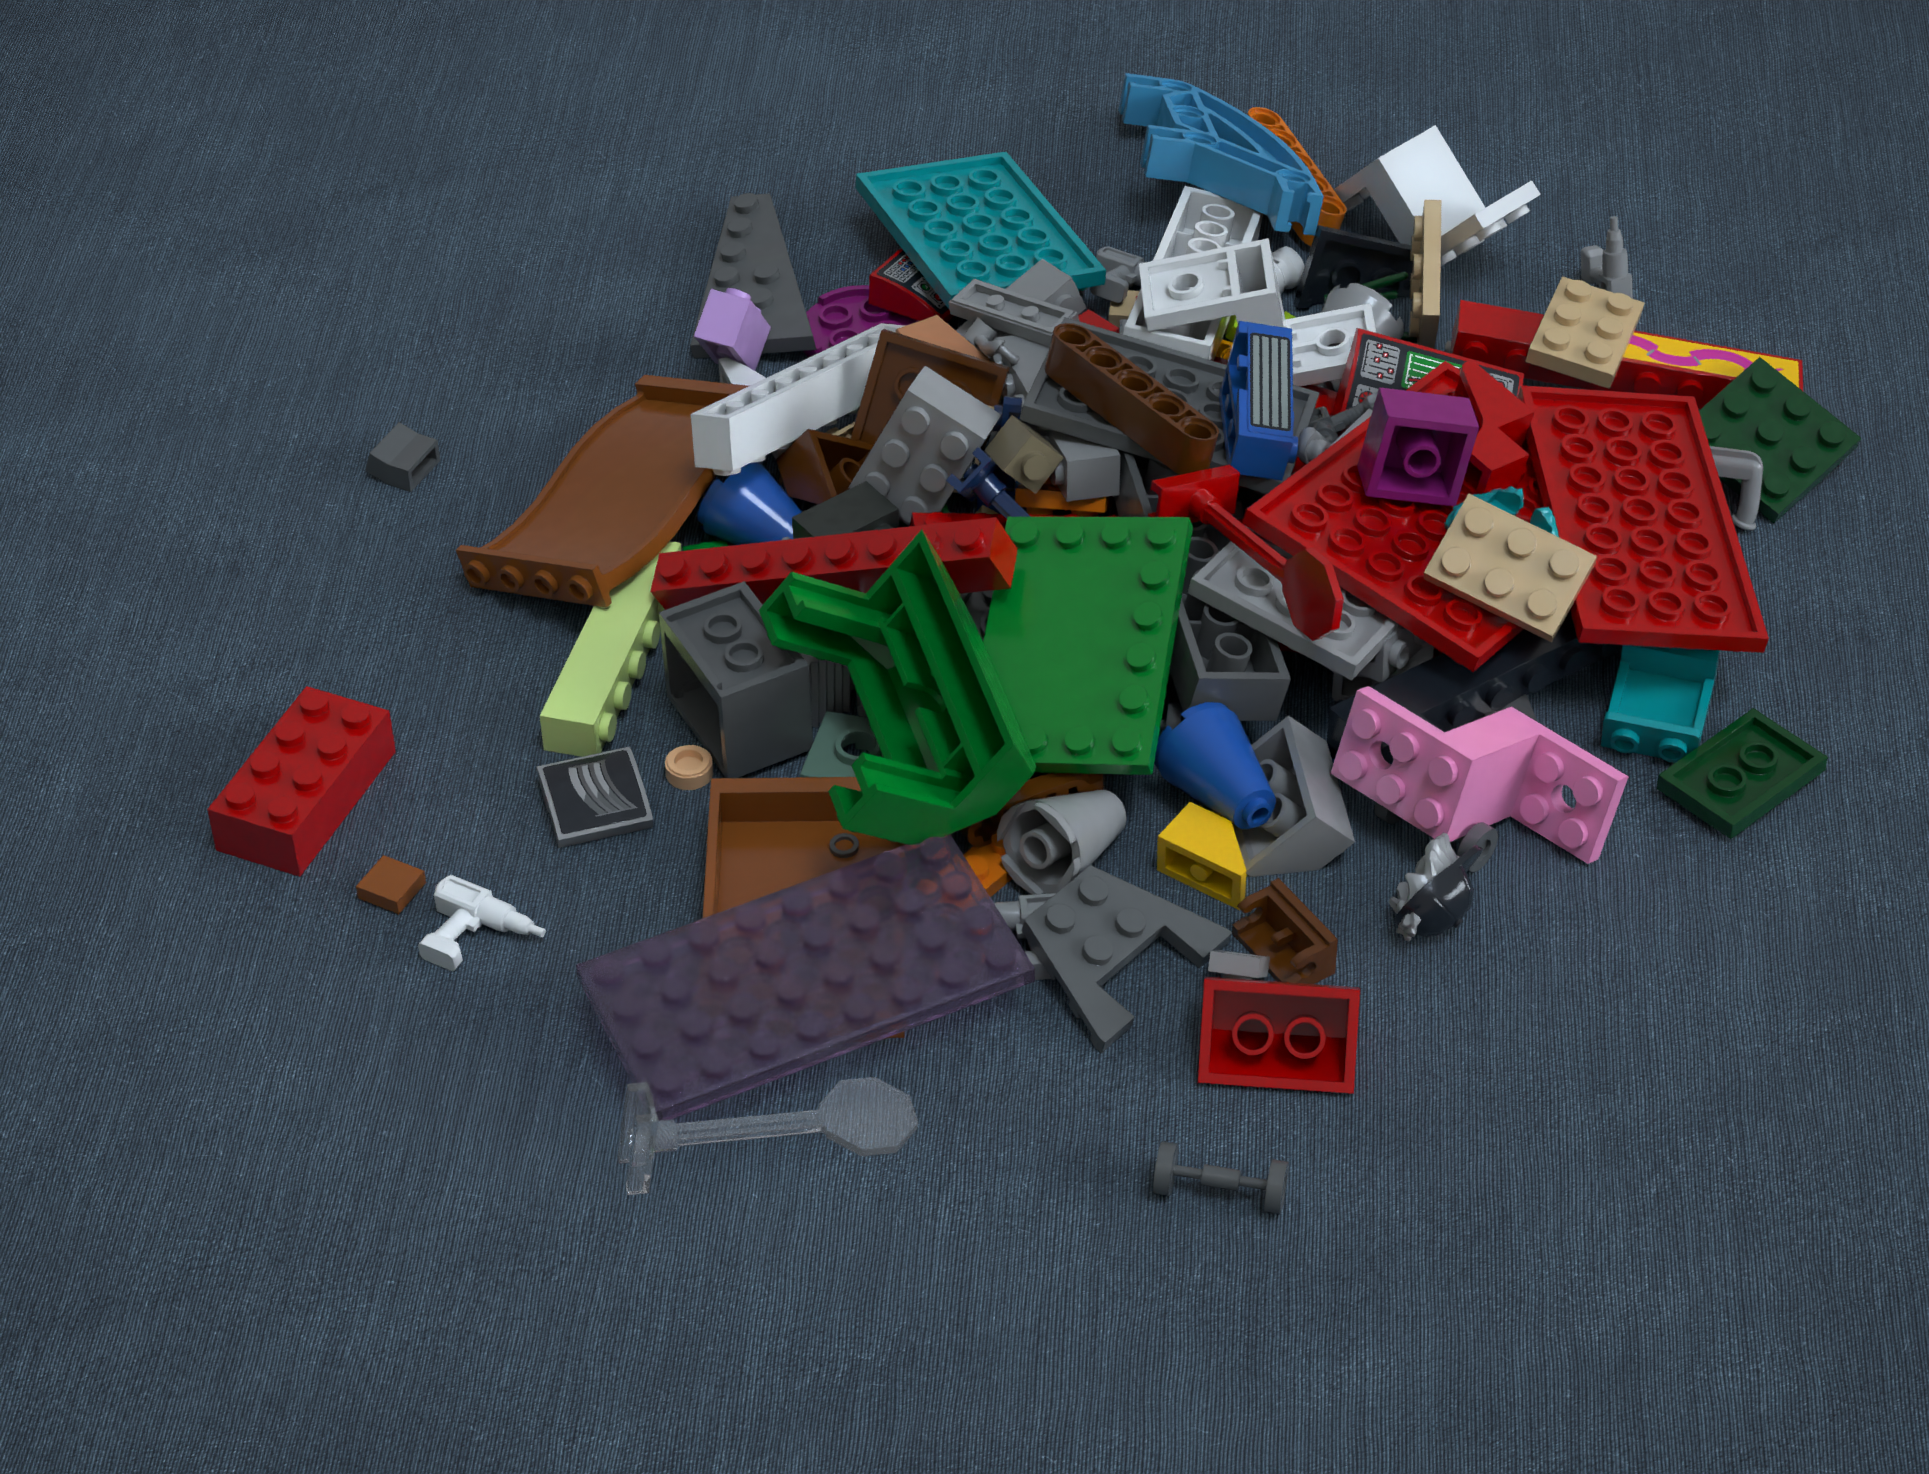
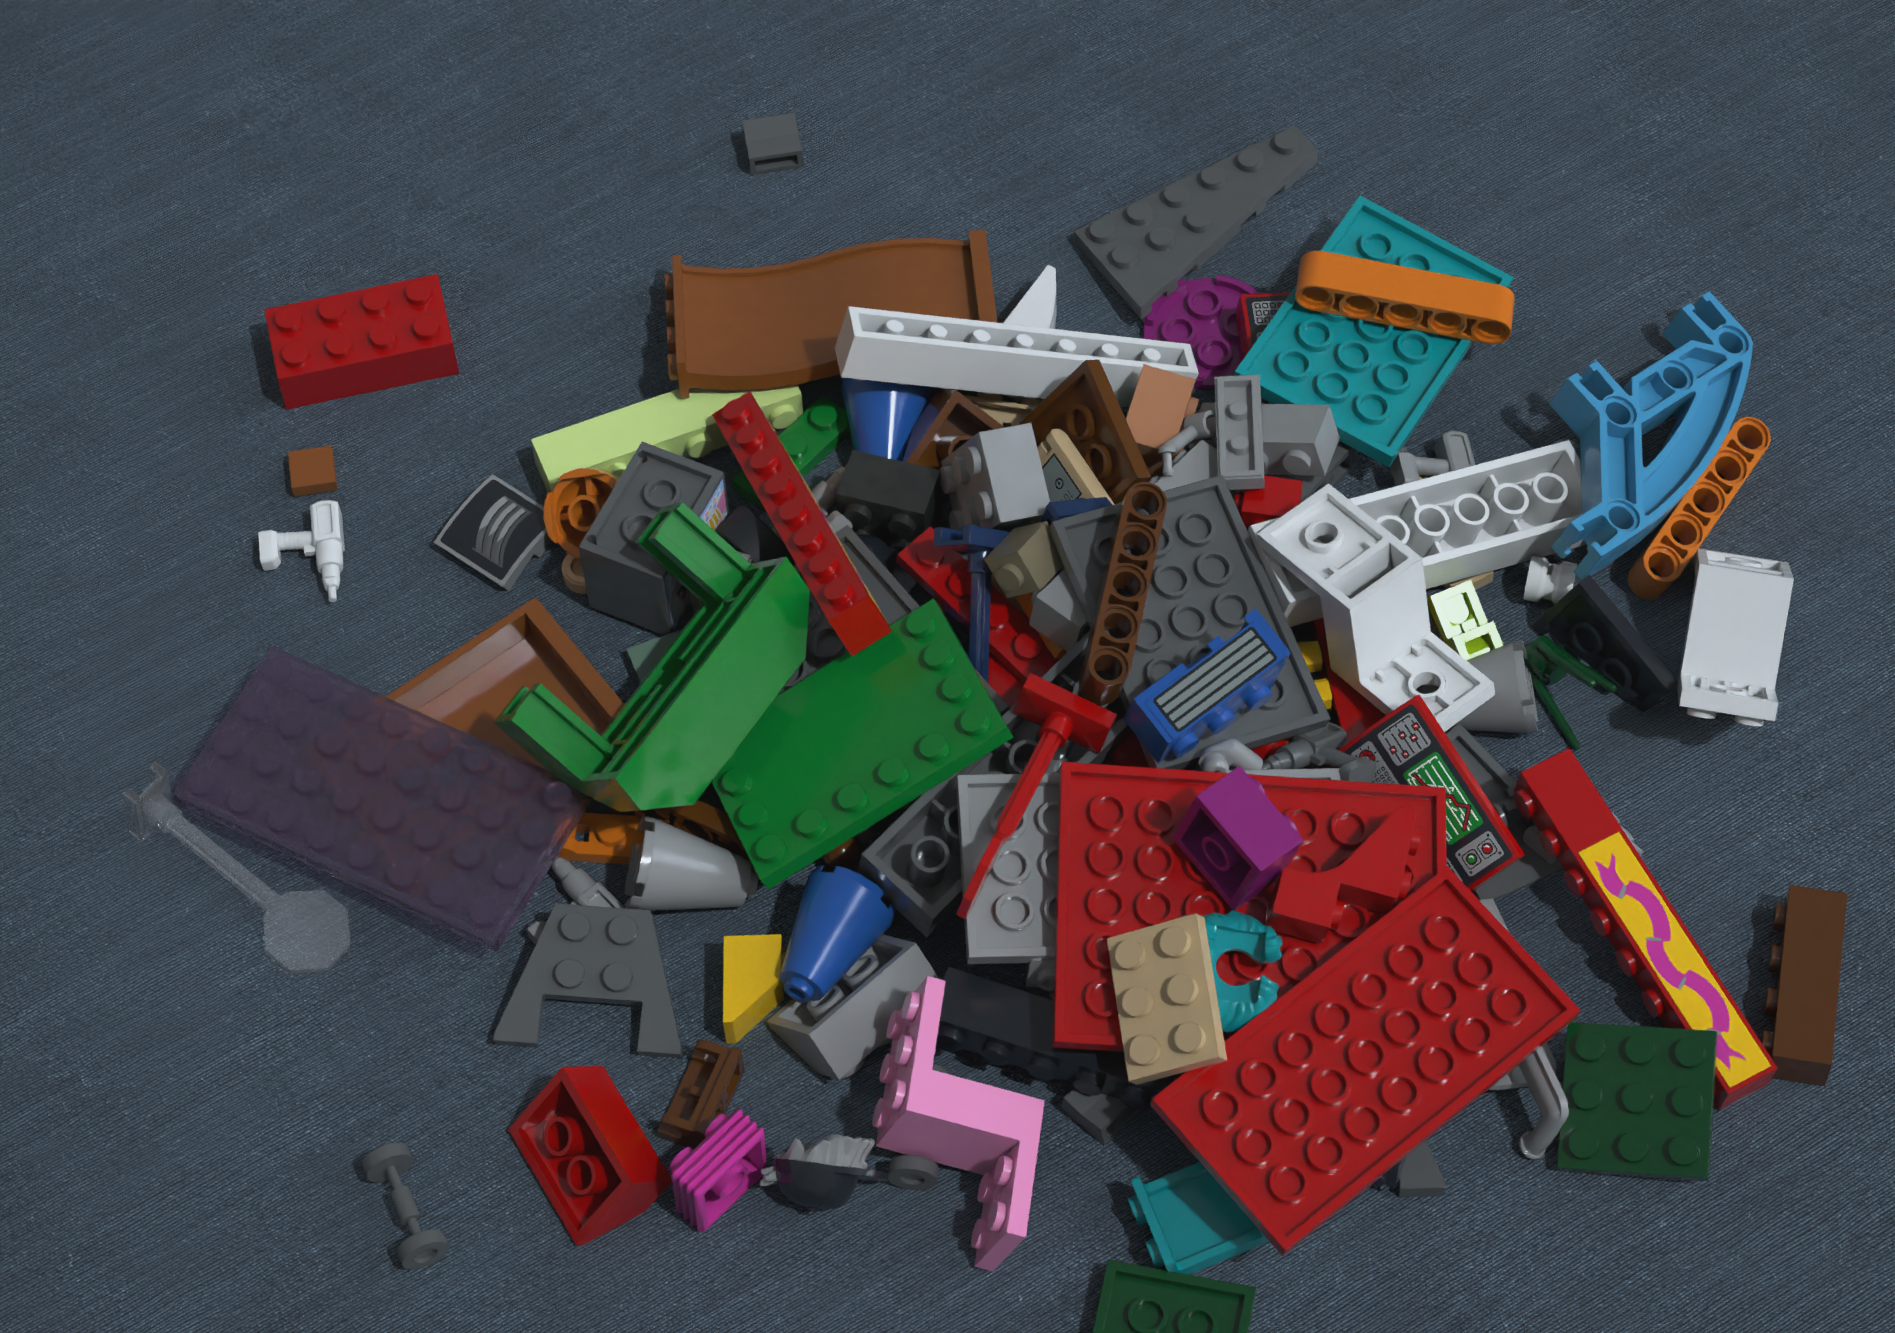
camera: 55 degrees right, 15 degrees up
(661, 695) = (575, 505): none -> orange cylinder
(732, 328) = (1075, 251): lavender brick -> none
(978, 189) = (1405, 297): none -> orange beam
(1238, 965) = (642, 1080): light grey plate -> none
(1381, 946) = (718, 1169): none -> dark pink brick
(1426, 274) = (1603, 700): tan plate -> none
(1585, 332) = (1617, 871): tan plate -> none
(1608, 266) = (1768, 850): light grey piece -> none
(1726, 316) = (1805, 983): none -> reddish brown brick

